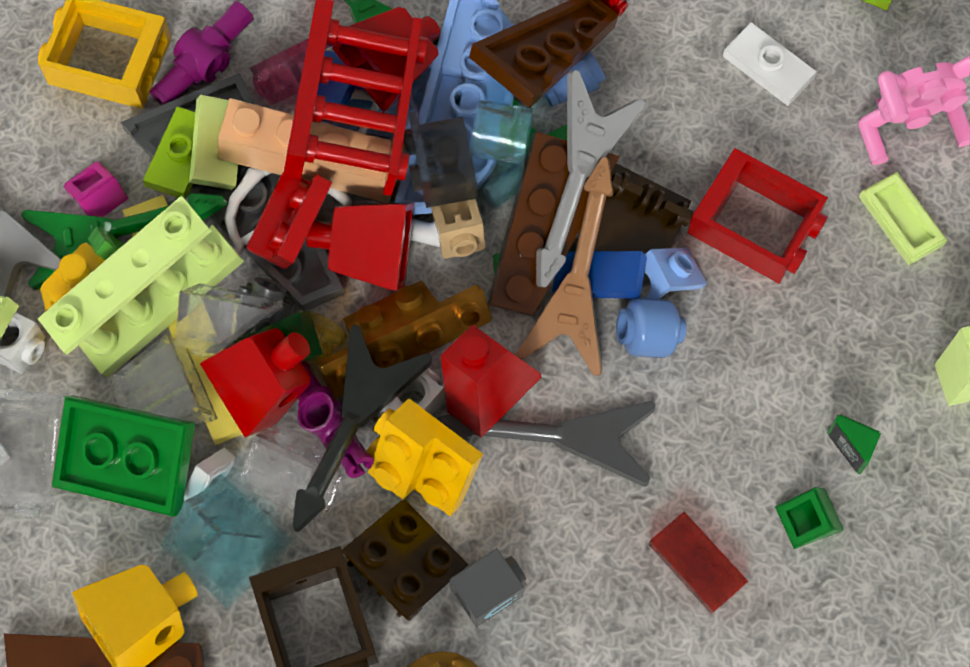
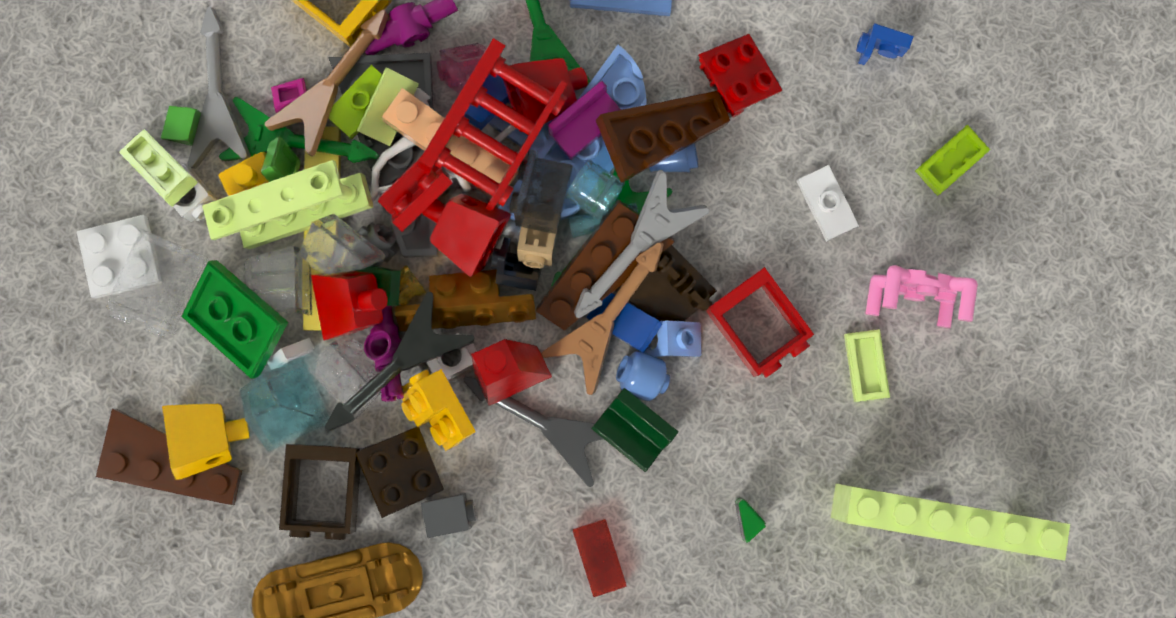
camera: 20 degrees right, 15 degrees up
(129, 172) = (316, 103): none -> medium nougat piece
(443, 273) = (511, 271): none -> black bracket
(449, 73) = (577, 125): none -> magenta panel
(670, 391) = (634, 430): none -> dark green panel
(809, 517) = (693, 557): green slope -> none

